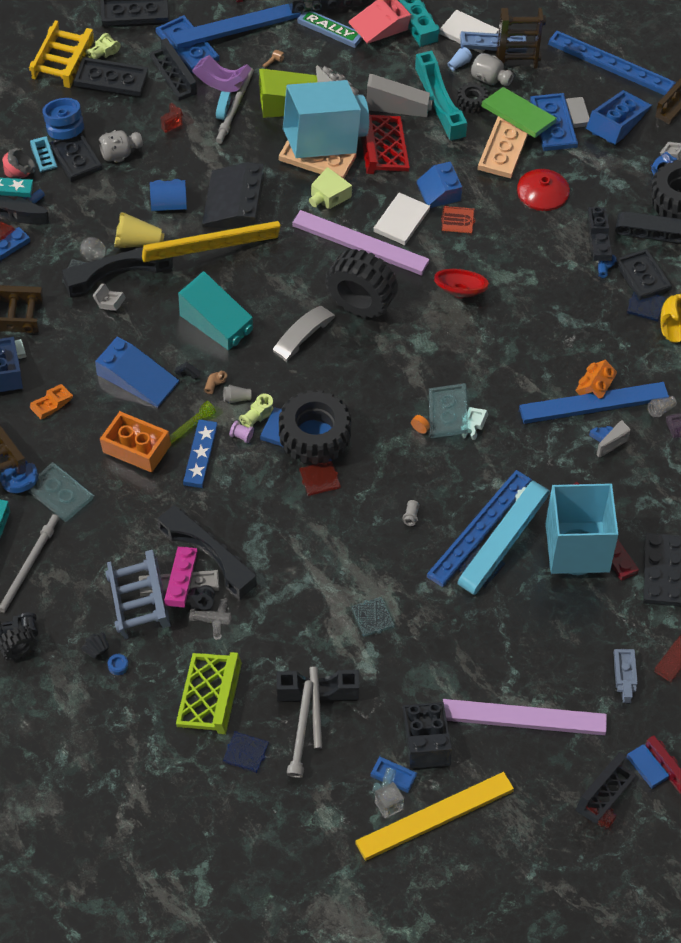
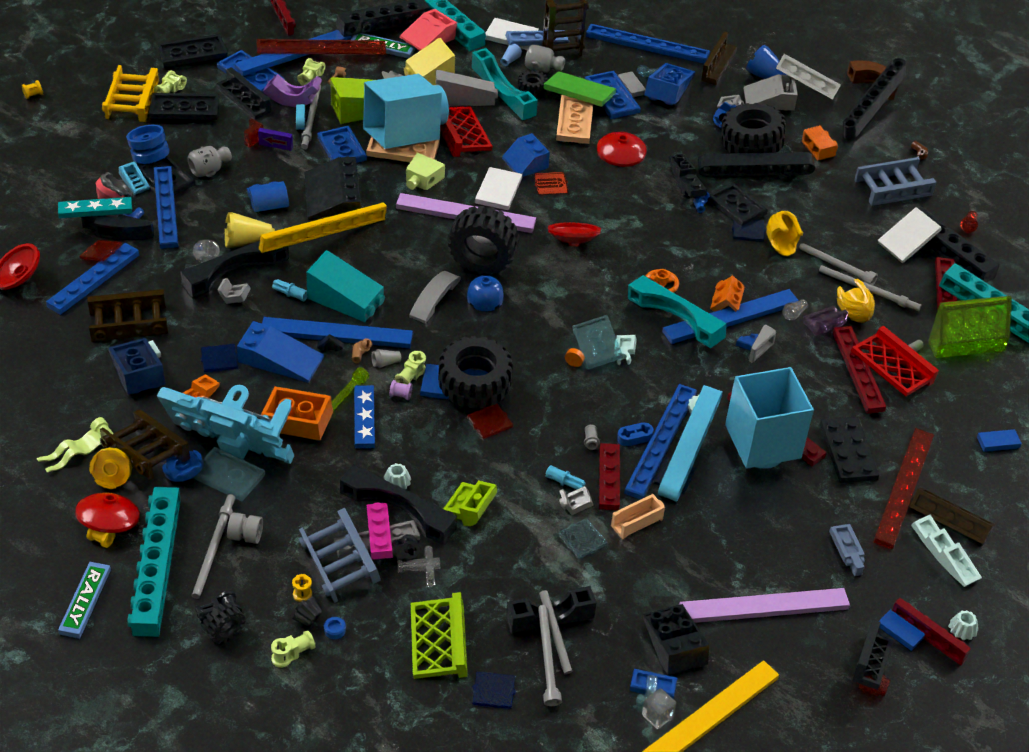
camera: 15 degrees left, 10 degrees down
(56, 550) = (246, 528): none -> light grey wheel
(66, 192) = (165, 207): none -> blue tile
(67, 447) = (234, 427): none -> medium azure piece
(72, 678) = (290, 648): none -> yellowish green connector
(79, 367) = (219, 357): none -> clear blue piece
(95, 620) = (305, 587): none -> yellow bush
(164, 304) = (290, 289): none -> medium azure axle
(191, 128) = (275, 139): none -> dark purple tile
(199, 358) = (342, 332): none -> blue tile
(214, 523) = (398, 475): none -> light aqua piece
(248, 50) = (310, 71): none -> yellowish green connector
(257, 144) = (341, 143): none -> blue tile
(264, 24) = (297, 46): none -> clear red tile
(274, 561) = (471, 501): none -> lime brick
(353, 338) = (485, 293): none -> blue cylinder
(368, 59) = (429, 59): none -> light yellow slope
(372, 552) = (564, 477): none -> medium azure axle
(375, 578) = (576, 500): none -> light grey bracket
(417, 557) = (609, 476): none -> dark red plate
(429, 598) = (637, 516): none -> light nougat window
(455, 516) = (635, 434): none -> blue beam
(516, 365) = (650, 294): none -> teal arch
(535, 347) = (664, 277): none -> orange piece
(594, 97) = (644, 71): none -> clear light blue arm

